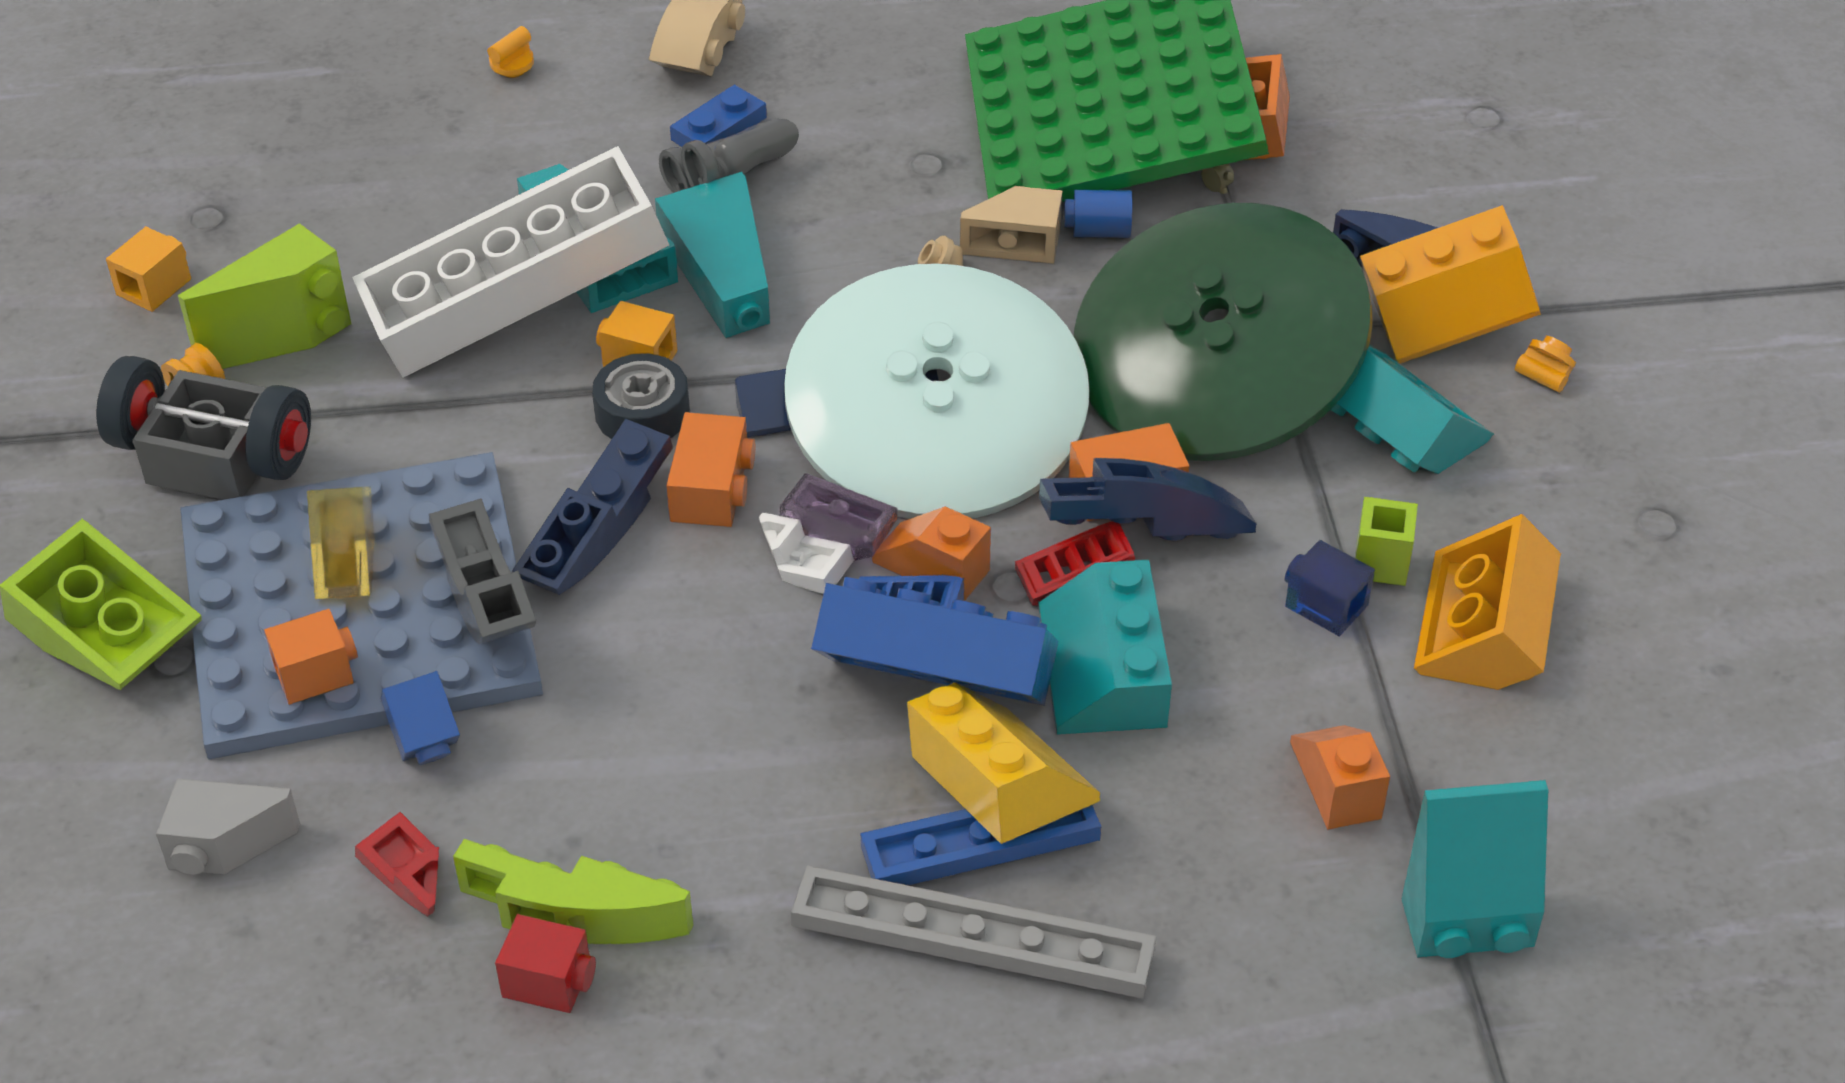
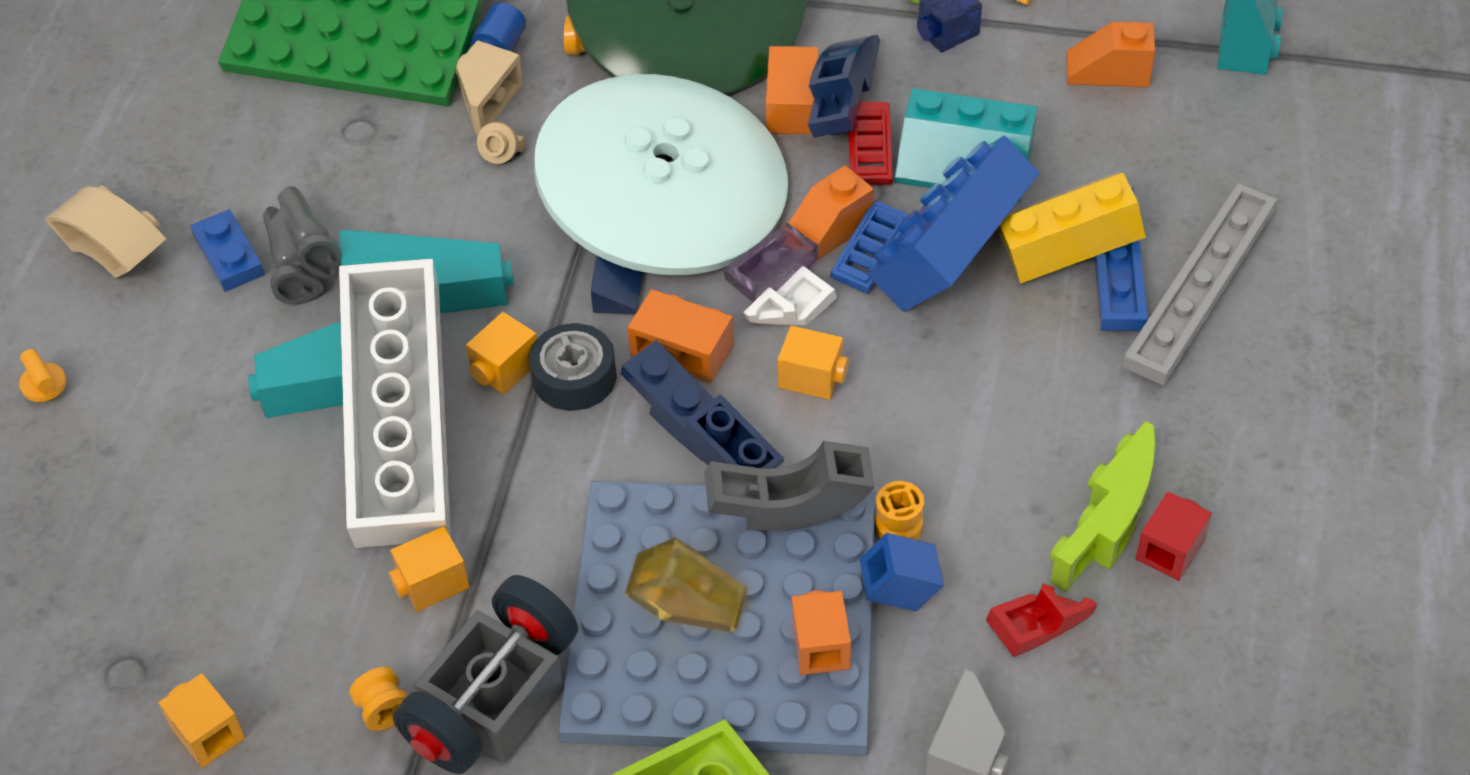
camera: 70 degrees left, 5 degrees up
(269, 301) = (330, 592): lime slope -> none
(349, 365) = (428, 569): none -> light orange brick
(510, 705) = (899, 510): none -> light orange wheel
(705, 583) = (811, 362): none -> light orange brick

